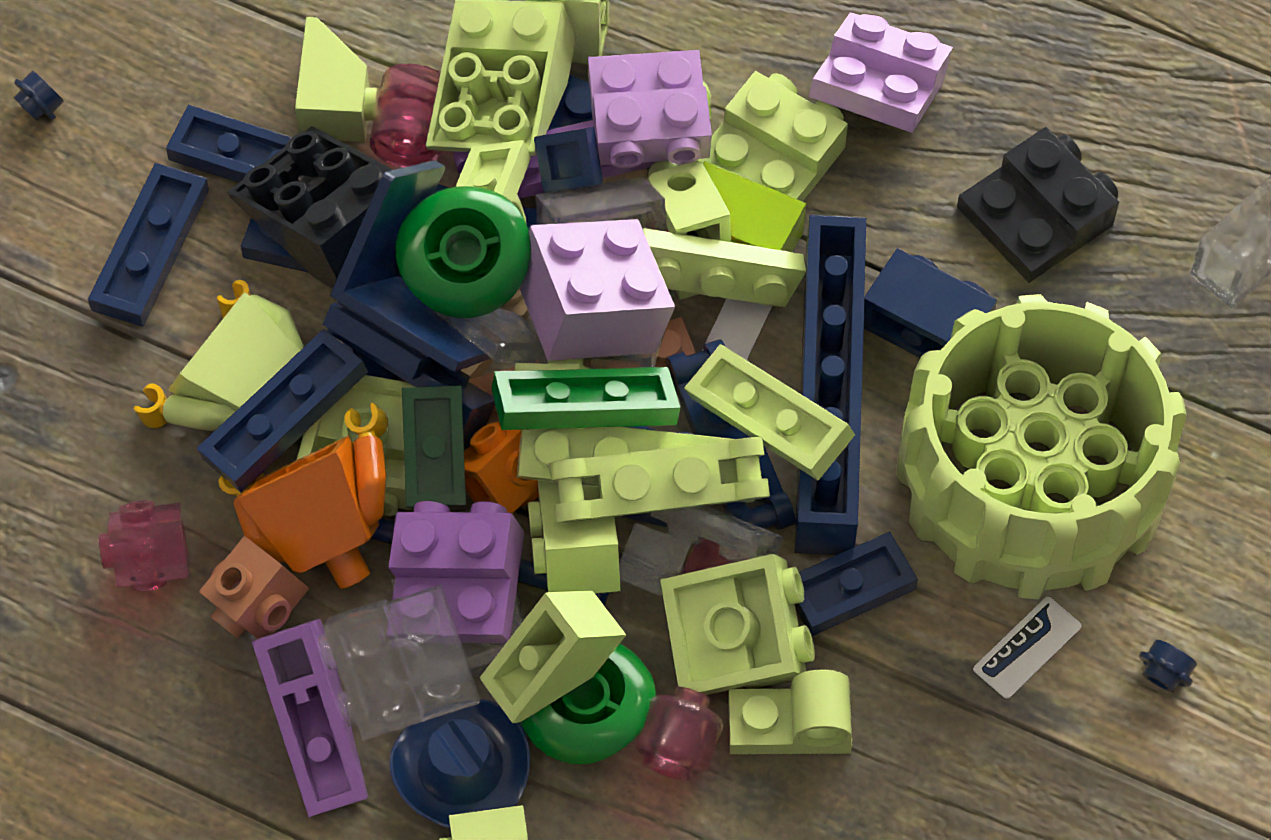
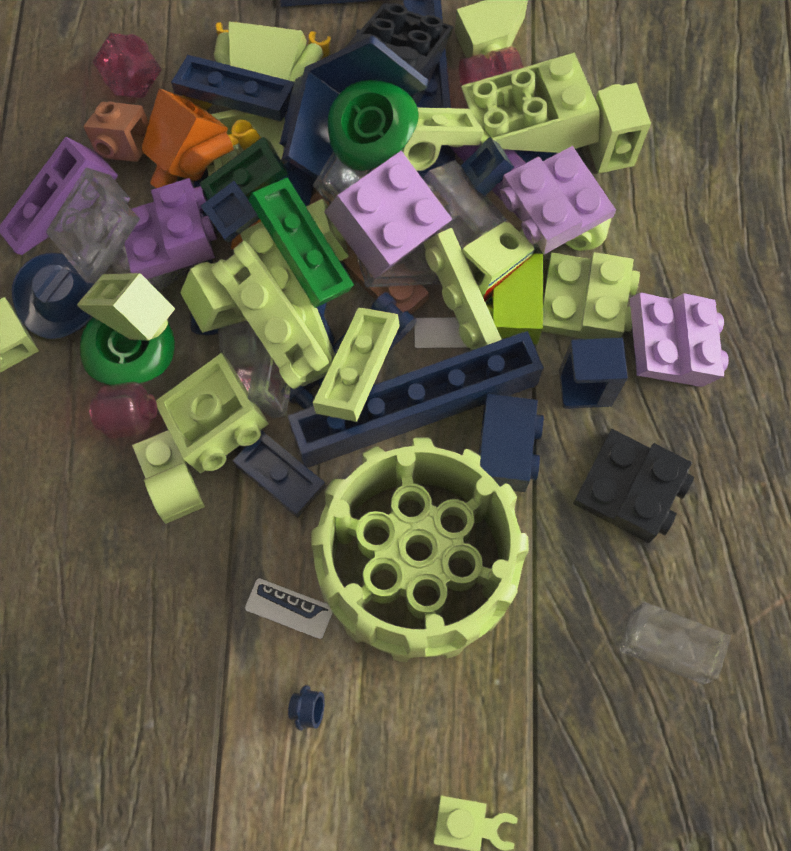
camera: 65 degrees right, 10 degrees up
(493, 466) = (230, 211): none -> dark blue tile
(891, 175) = (592, 373): none -> dark blue panel

